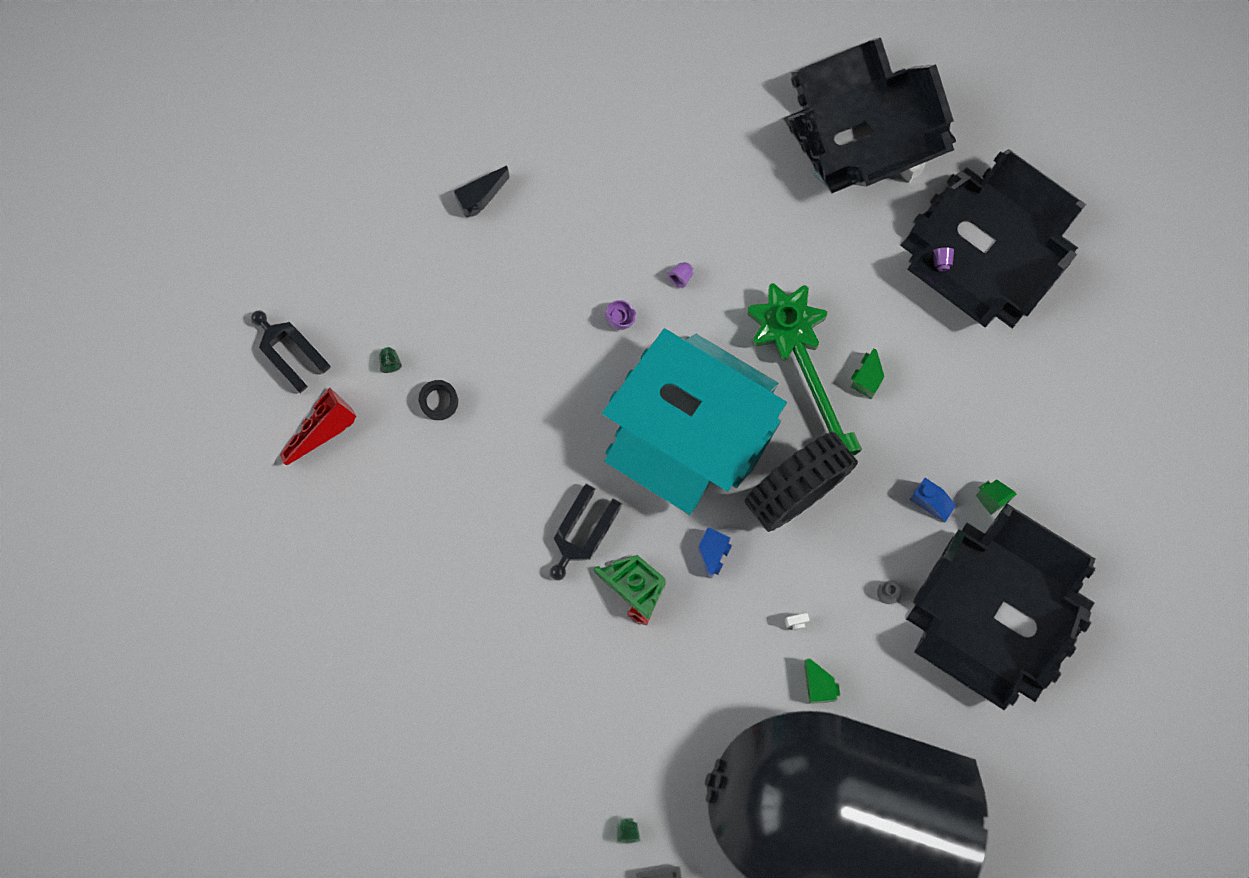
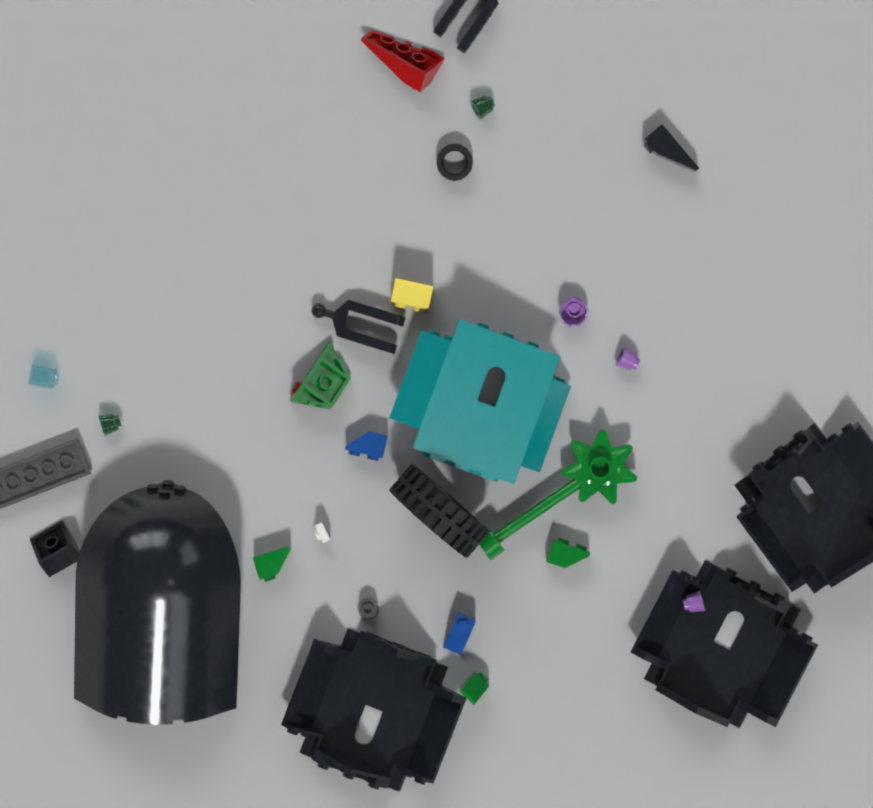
camera: 75 degrees right, 15 degrees up
(564, 469) = (412, 295): none -> light yellow slope

